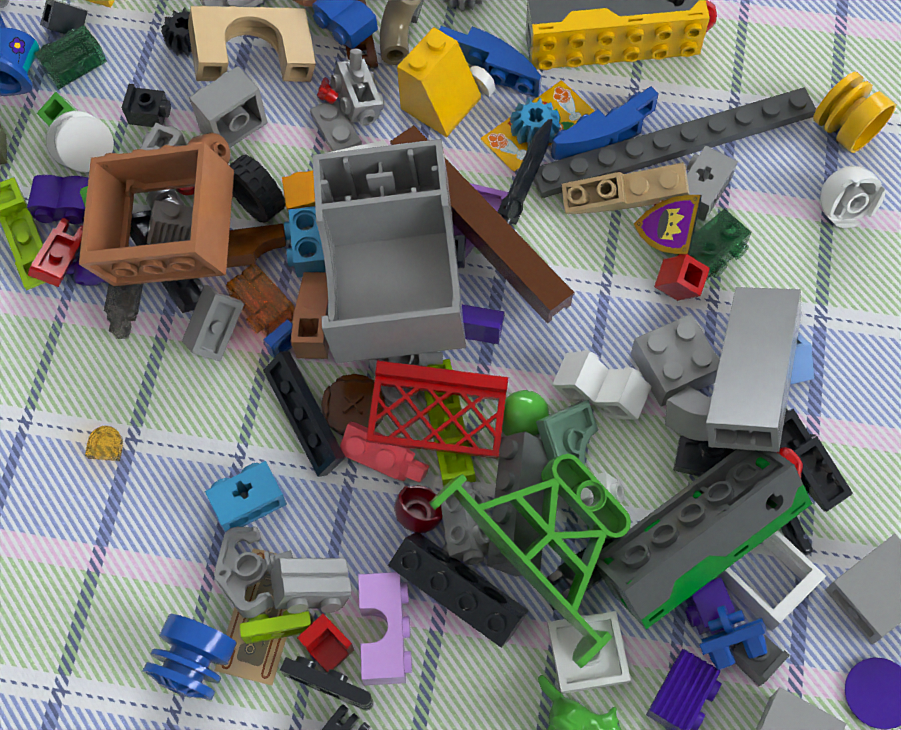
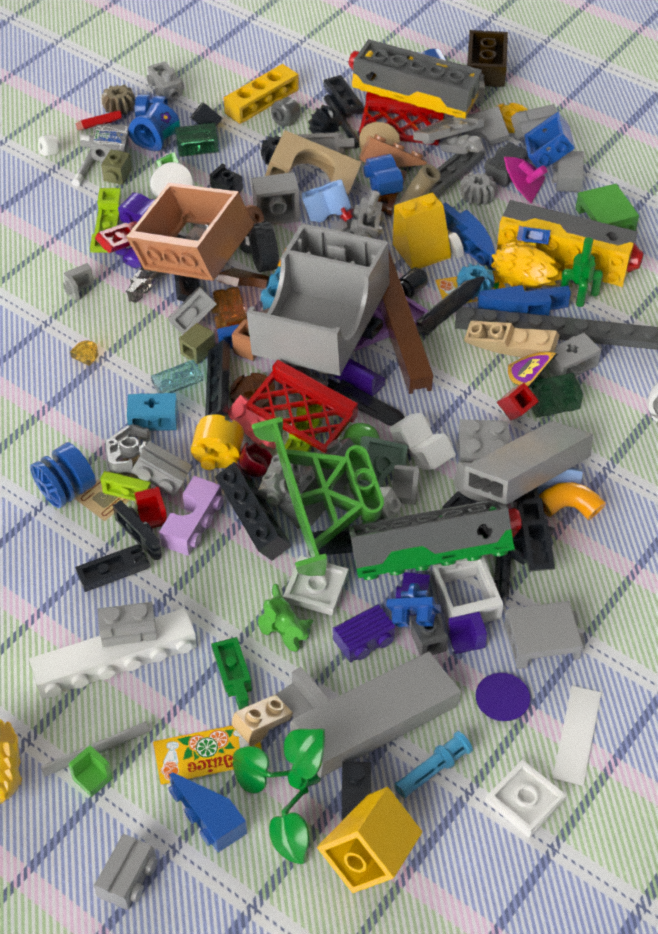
camera: 25 degrees right, 15 degrees down
(32, 339) = (78, 279): none -> light grey bracket
(245, 366) = (196, 343): none -> olive brick
(248, 430) = (177, 377): none -> clear light blue plate
(293, 84) = (326, 200): none -> light blue brick
(359, 510) = (217, 442): none -> yellow brick
(462, 154) = (413, 281): none -> black brick
(505, 357) = (367, 403): none -> black piece
(582, 37) = (533, 235): none -> blue piece
(586, 78) = (525, 265): none -> yellow head
(615, 455) = (406, 483): none -> light grey panel
(661, 61) = (583, 273): none -> green plant
(799, 630) = (467, 633): none -> dark purple panel
(819, 378) = (571, 495): none -> light orange cylinder

